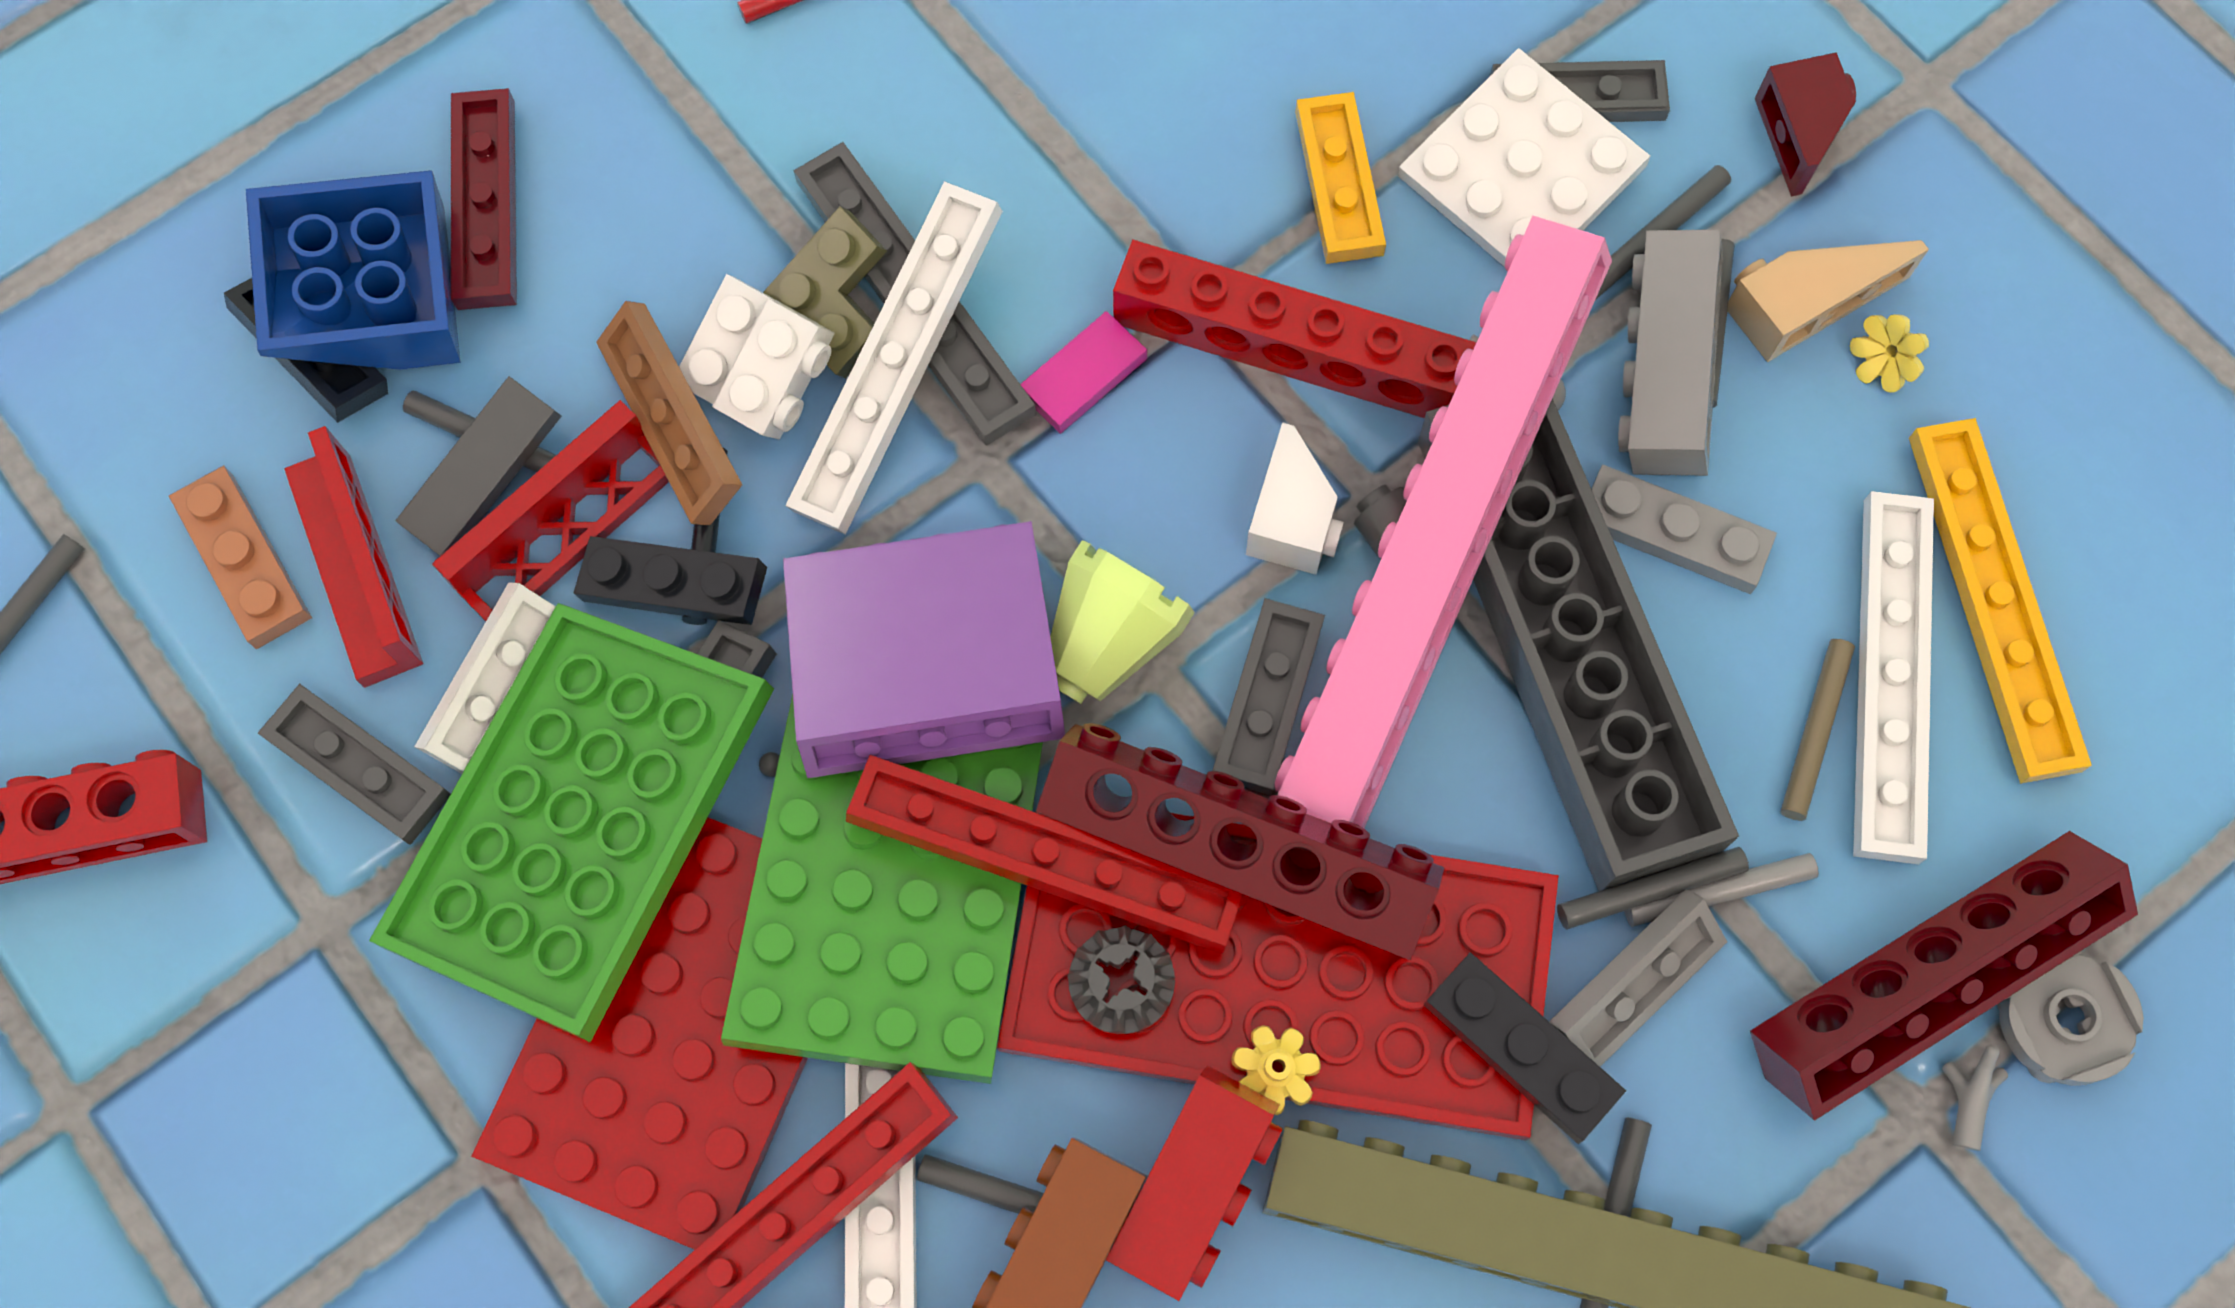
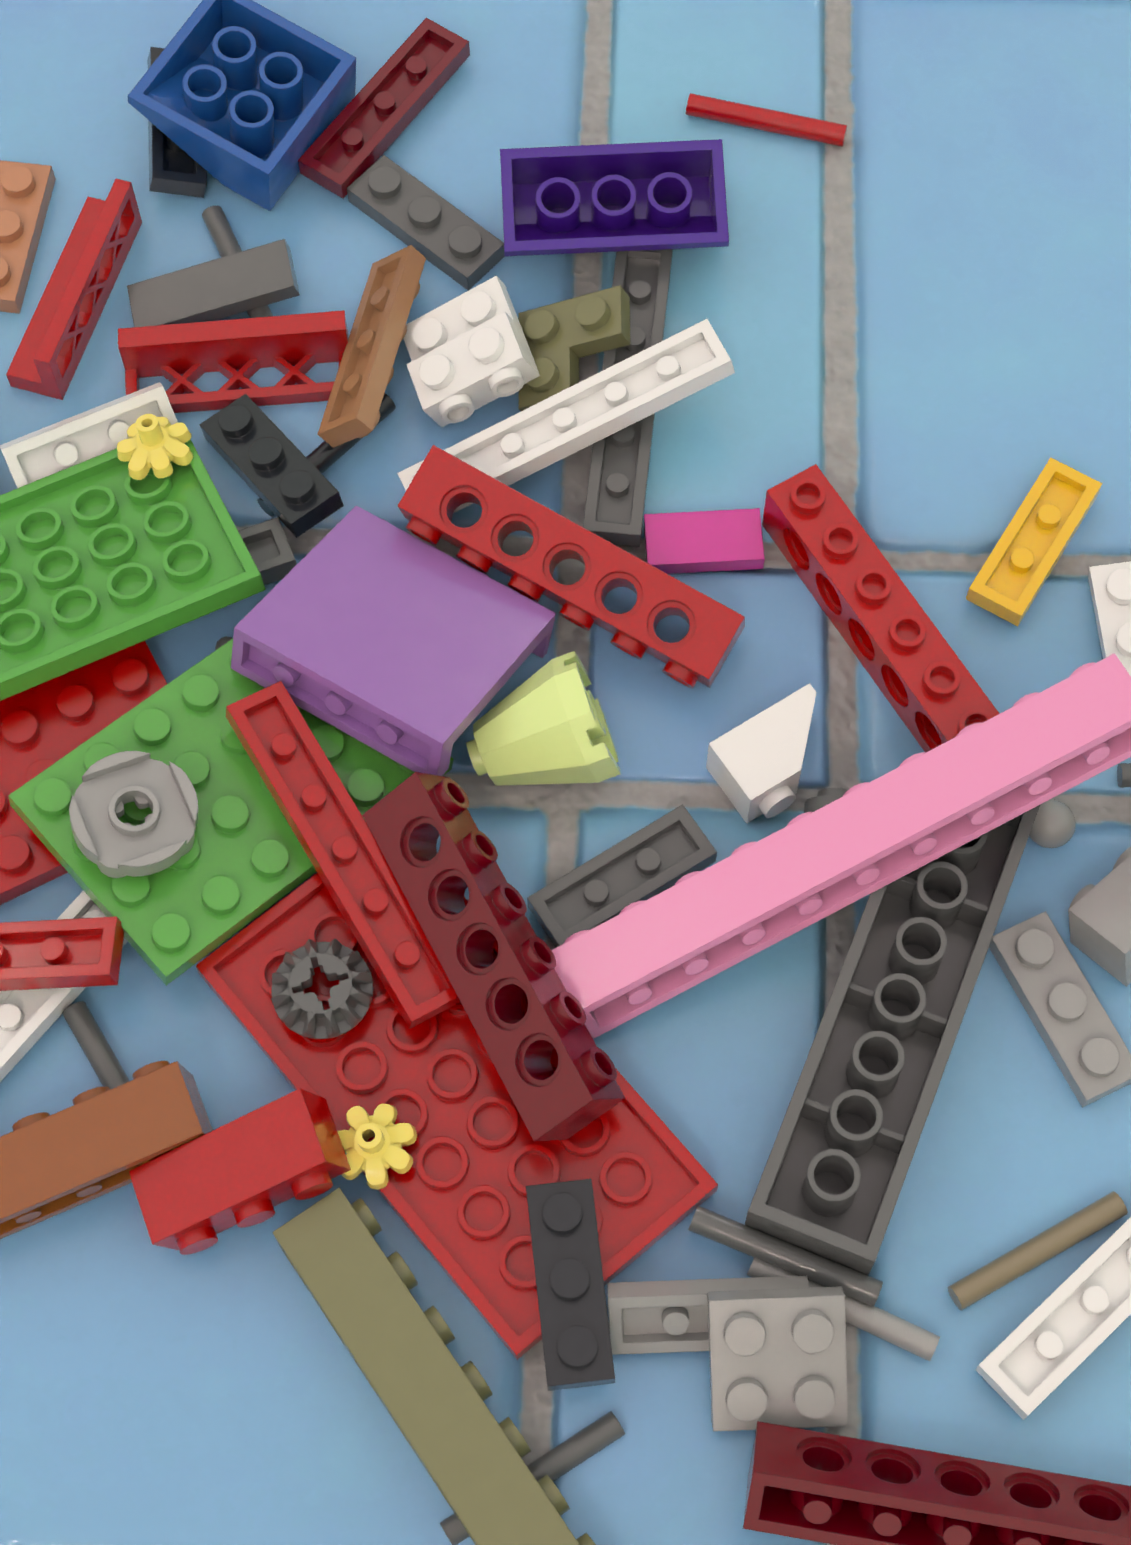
camera: 40 degrees right, 5 degrees down
(559, 641) = (153, 445): none -> light yellow plant
(607, 273) = (426, 222): none -> dark grey plate
(763, 138) = (614, 197): none -> dark purple slope
(838, 929) = (119, 846): none -> light grey plate
(1160, 436) = (449, 482): none -> red brick
(1720, 970) = (778, 1358): none -> light grey plate

